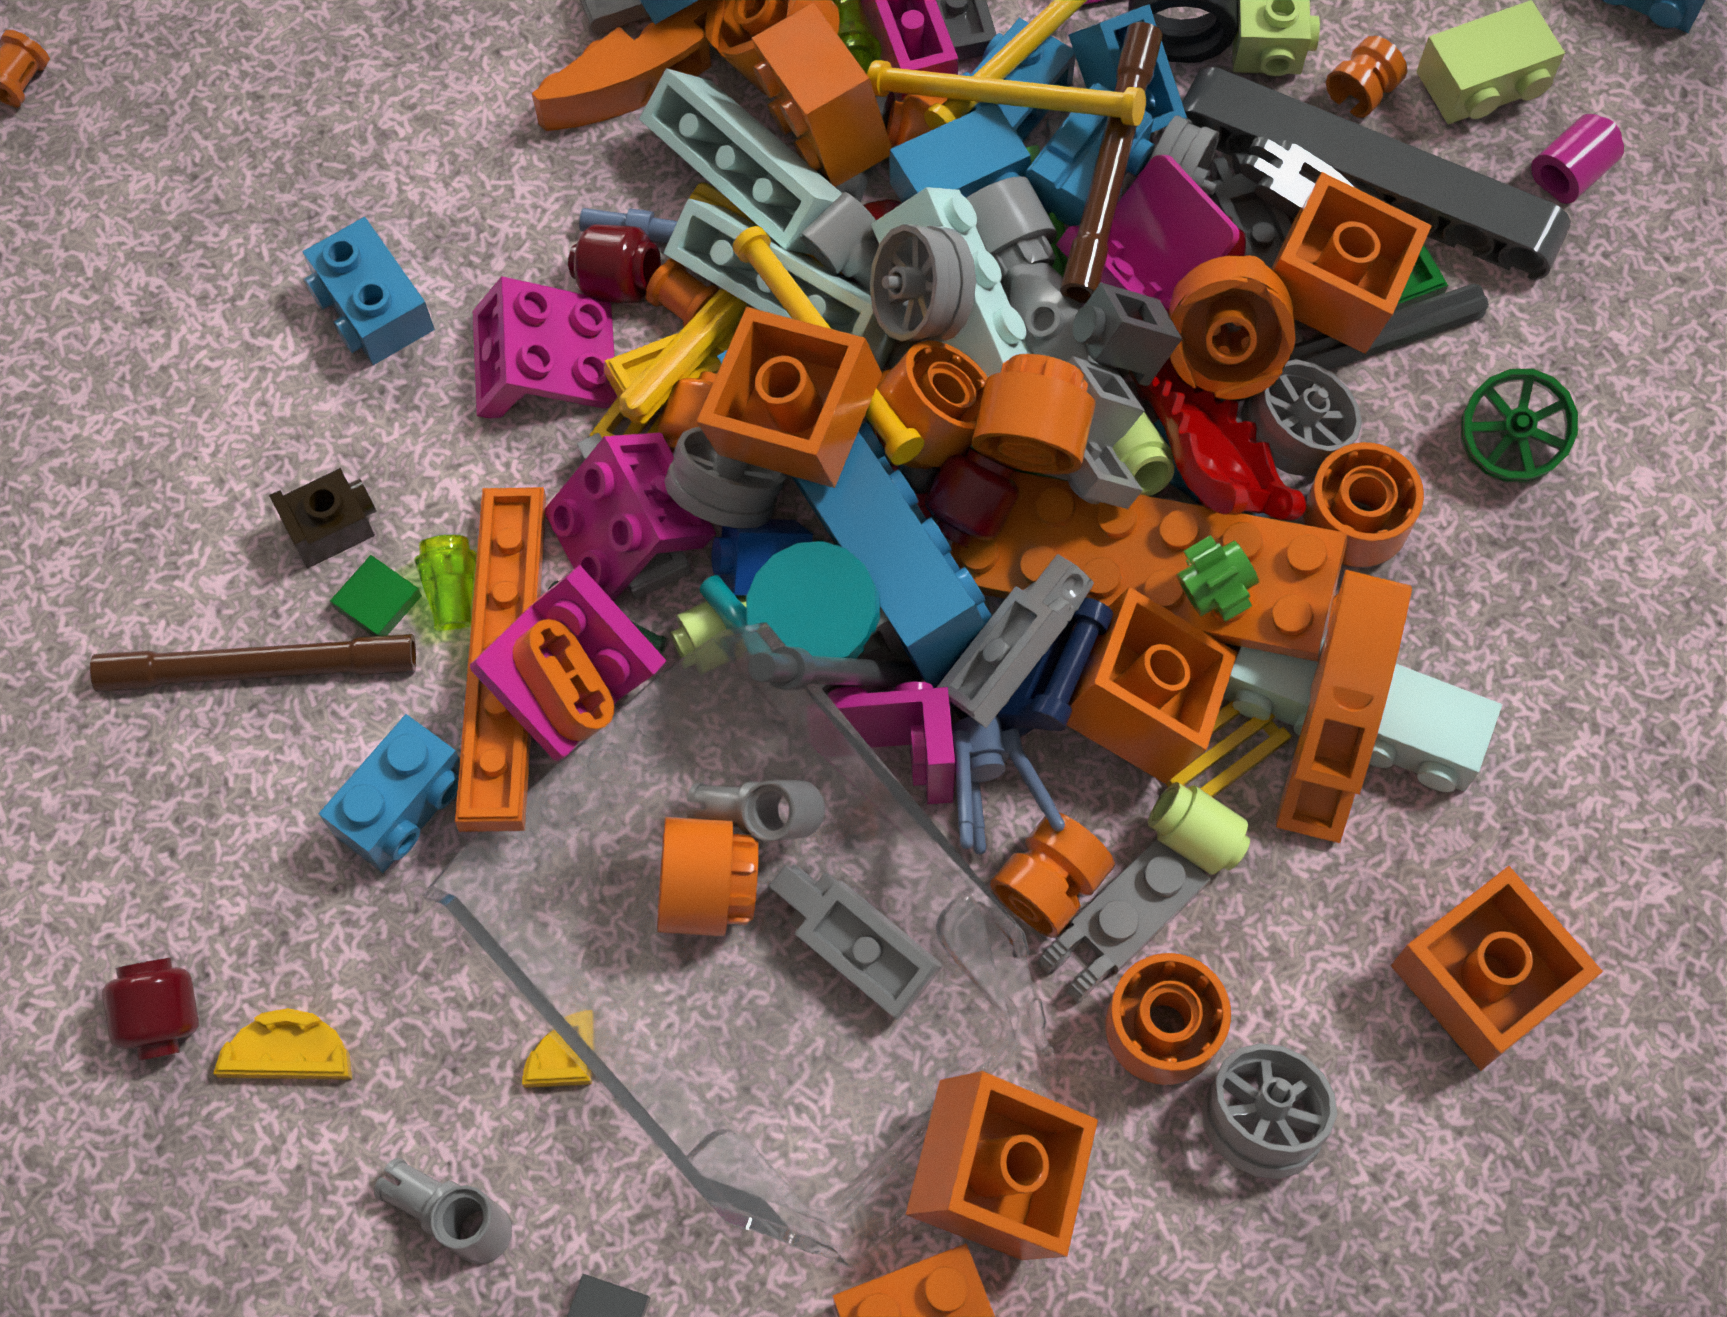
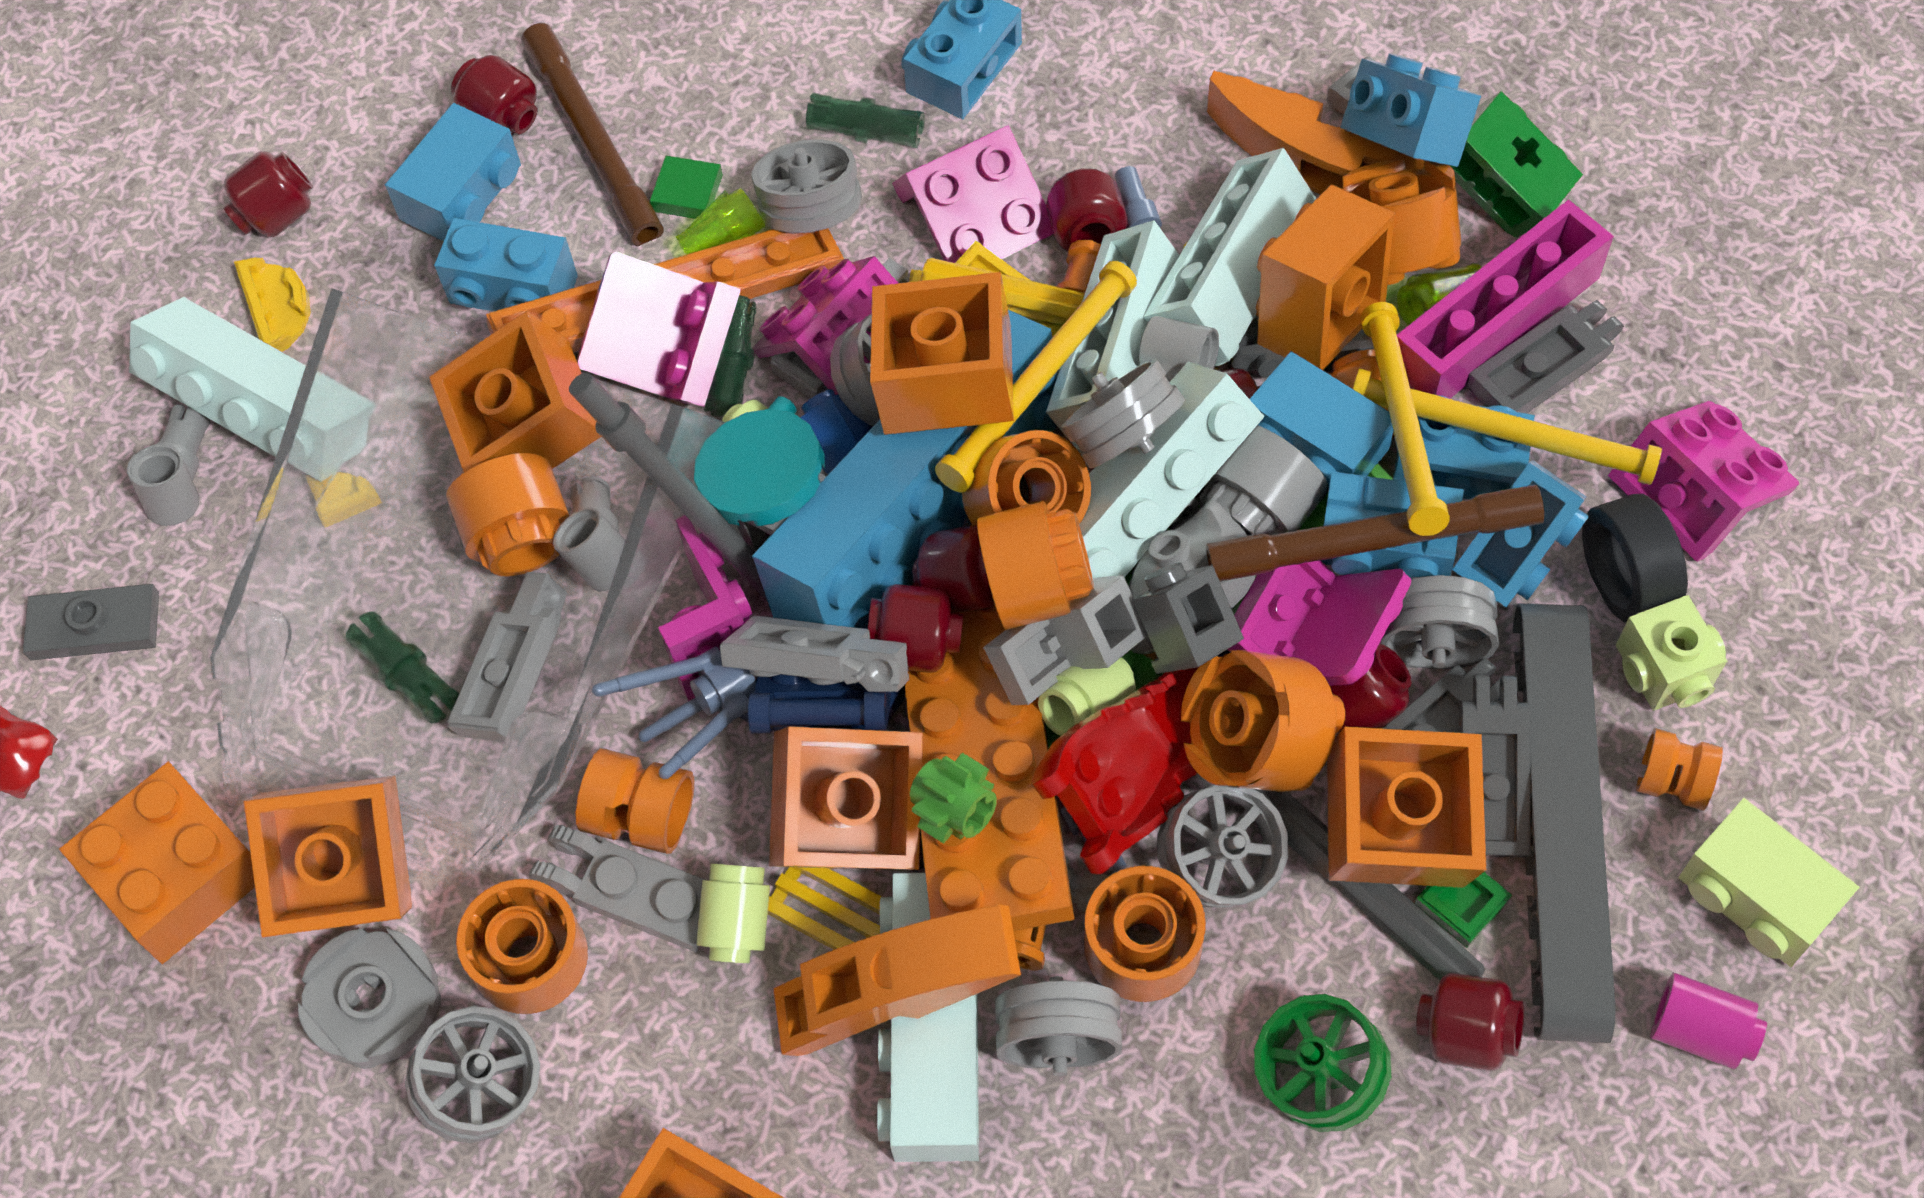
camera: 70 degrees right, 5 degrees down
(164, 734) = (496, 92): none -> dark red head
(244, 803) = (453, 172): none -> dark azure brick
(325, 516) = (736, 115): dark brown brick -> none
(392, 408) = (865, 120): none -> clear green pin
(396, 1099) = (216, 370): none -> light aqua brick
(439, 460) = (806, 186): none -> light grey wheel
(563, 680) = (655, 340): orange beam -> none
(585, 825) = (514, 396): none -> orange brick
(806, 1045) = (402, 667): none -> clear green pin
(1011, 554) = (921, 621): none -> dark red head
(1179, 1206) = (391, 1027): none -> light grey plate
(1430, 604) = (1058, 1025): none -> light grey wheel
(1520, 310) = (1471, 1022): none -> dark red head

